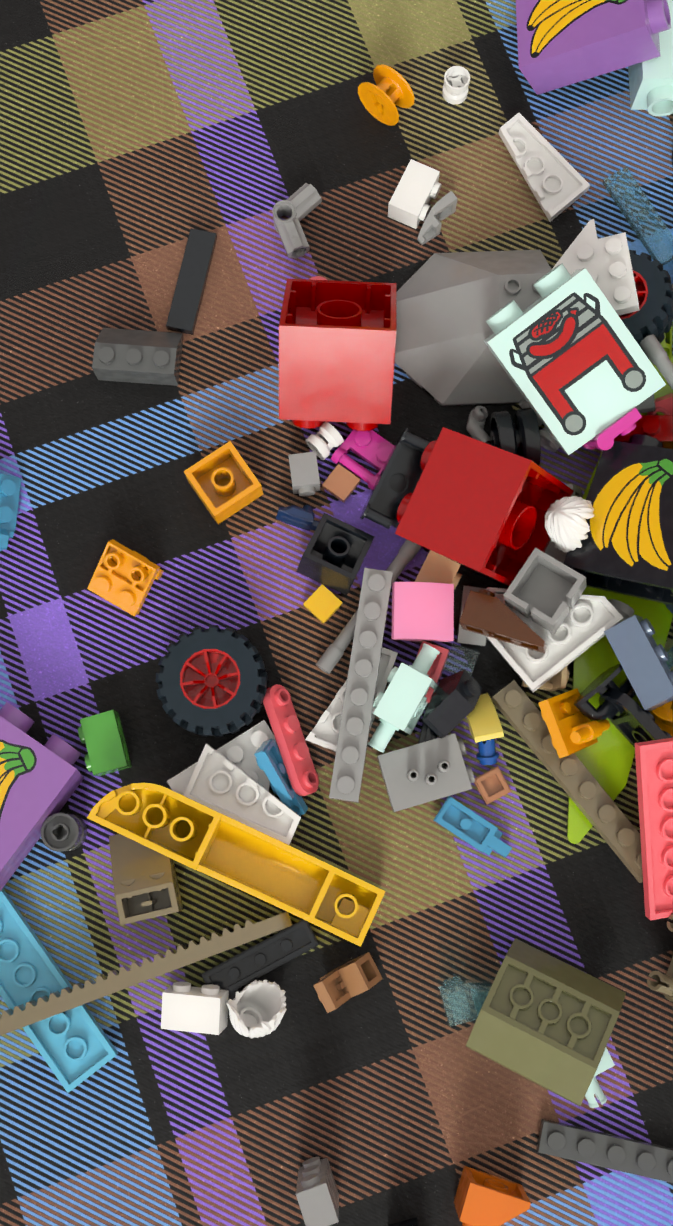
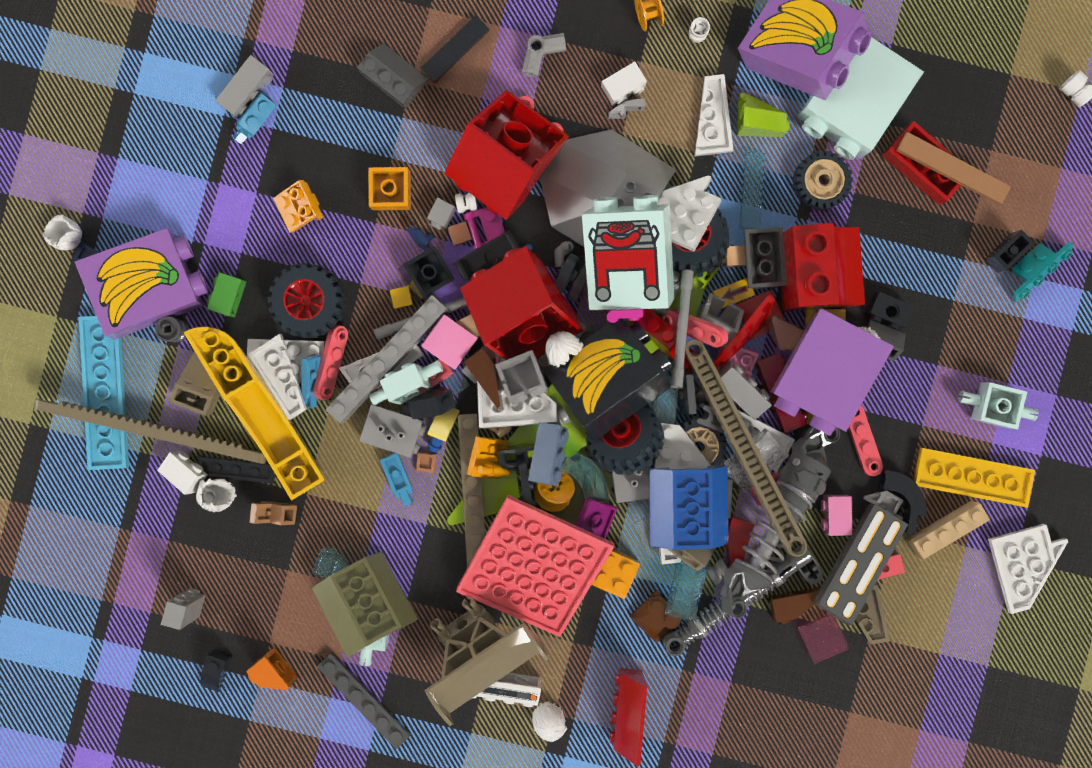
camera: 30 degrees right, 10 degrees up
(592, 133) = (760, 118): none -> lime slope

